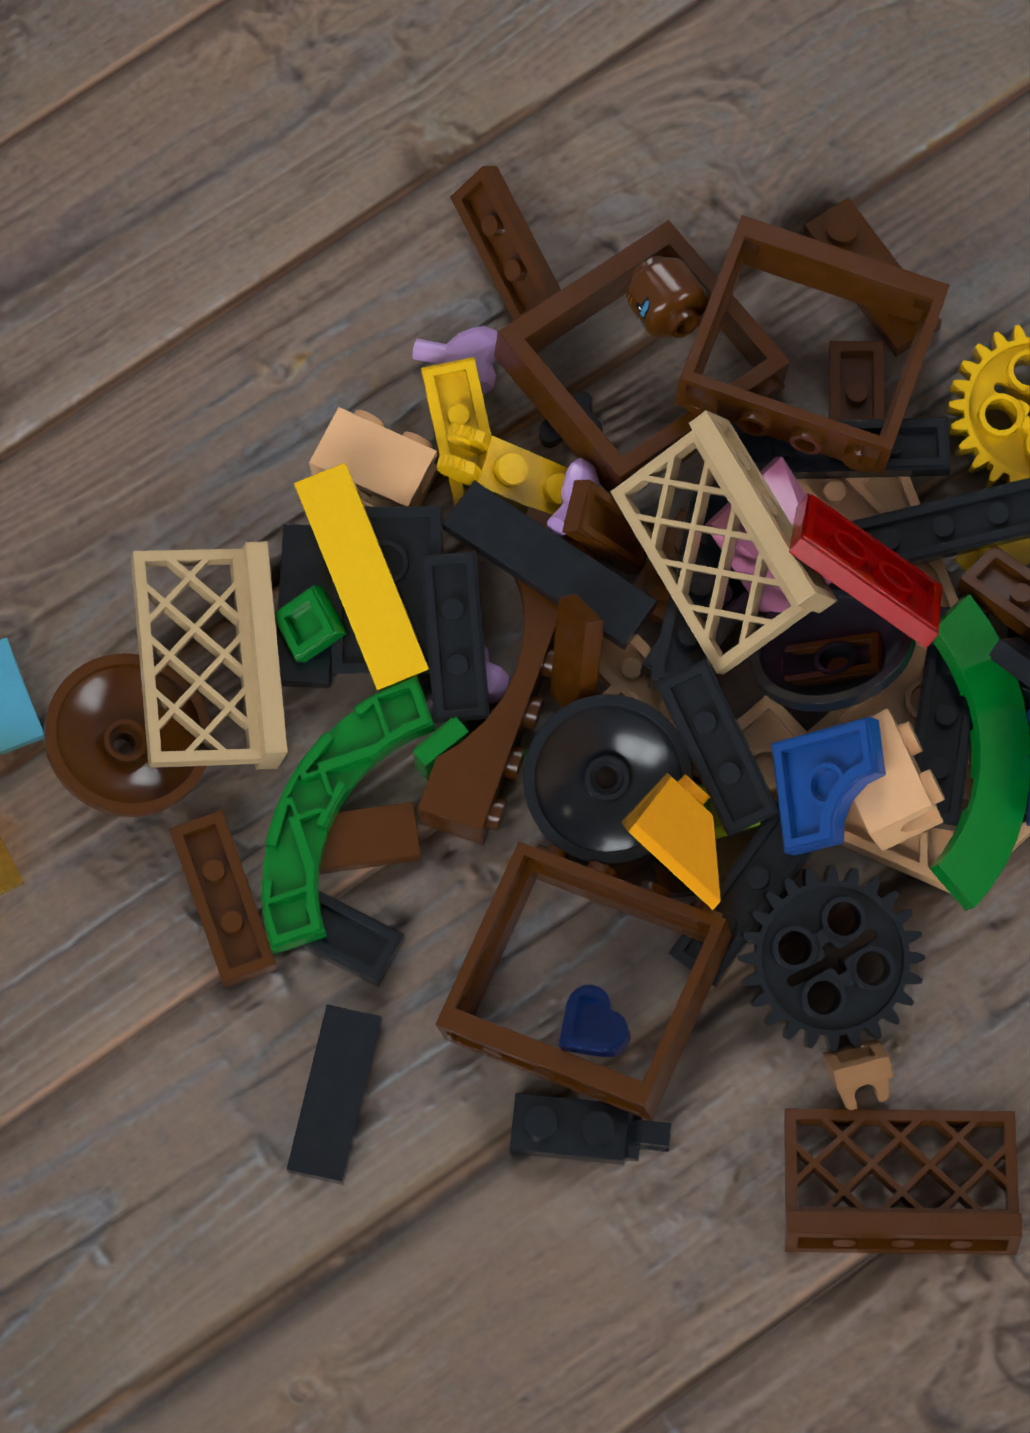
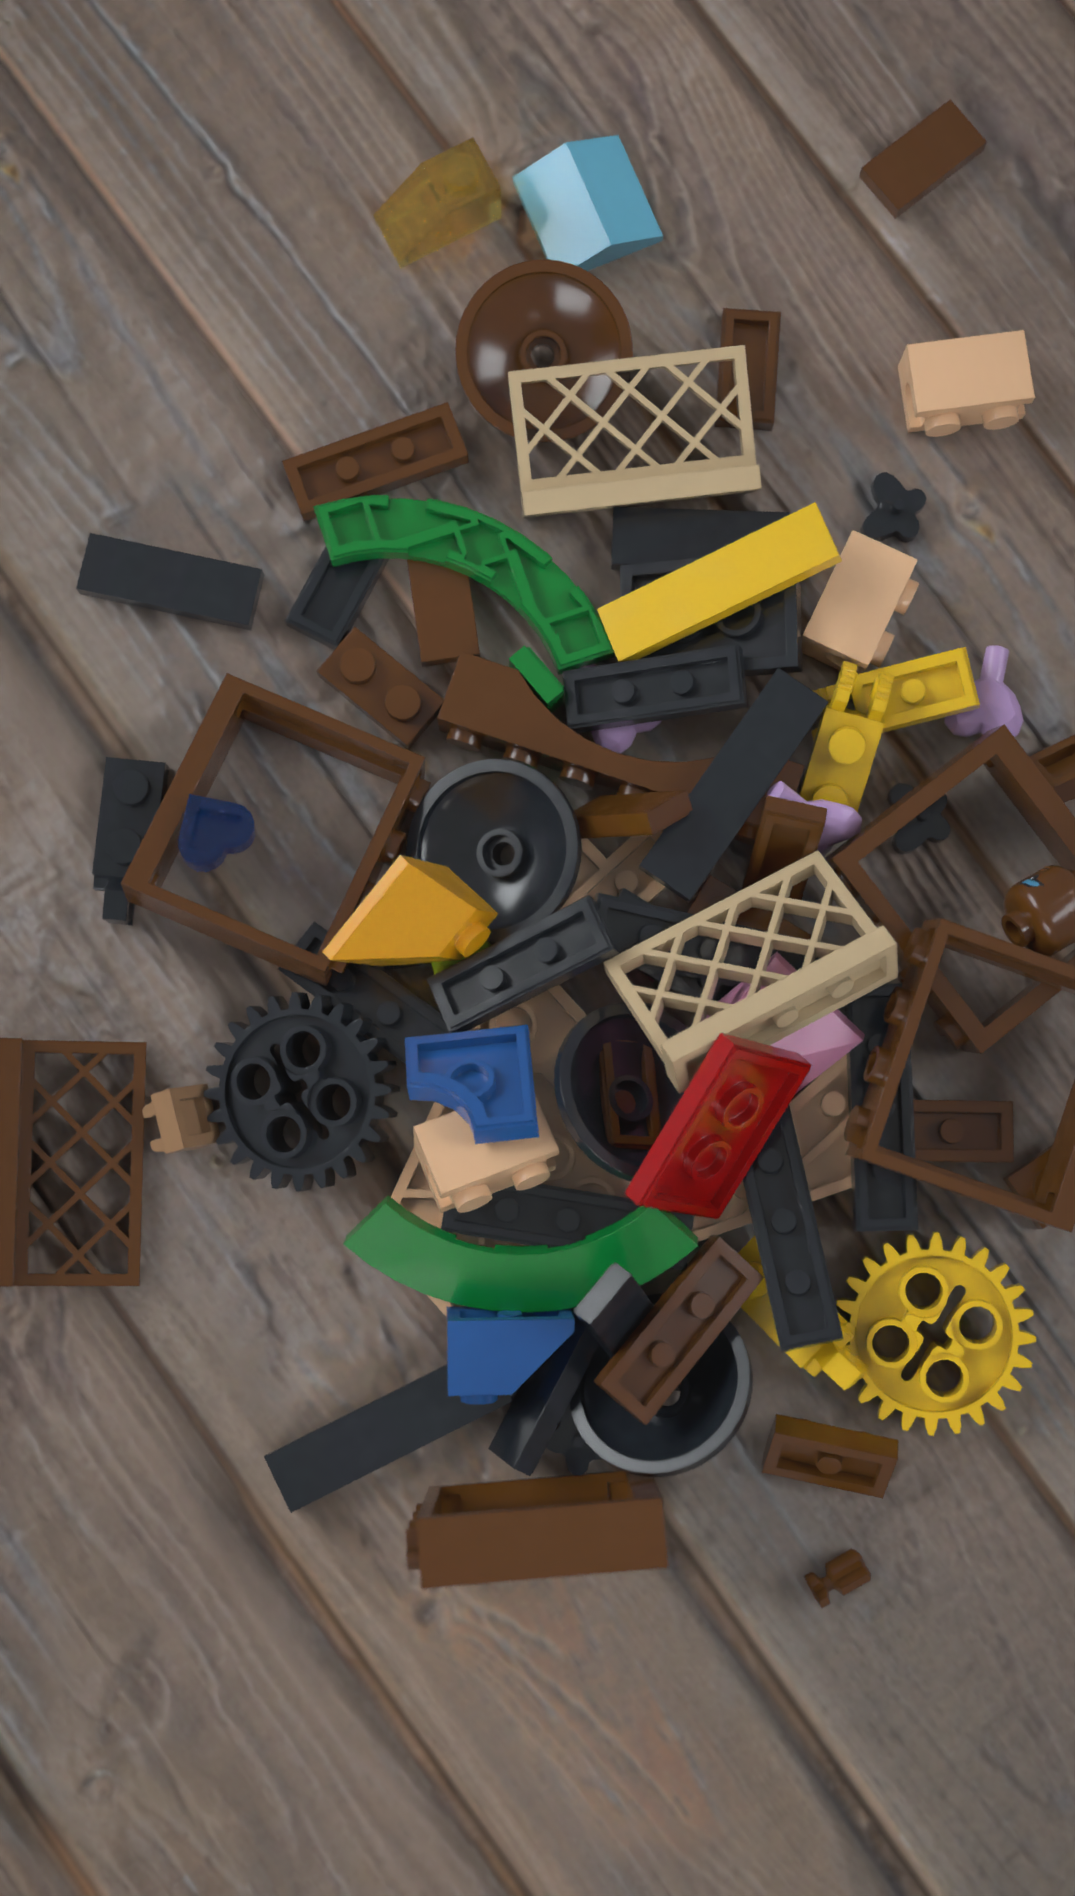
camera: 85 degrees right, 10 degrees up
(110, 560) = (761, 337): none -> reddish brown tile
(166, 369) = (966, 383): none -> light nougat brick
(282, 435) = (894, 511): none -> black piece
(309, 624) = (670, 536): green tile -> none
(443, 895) = (381, 688): none -> reddish brown plate

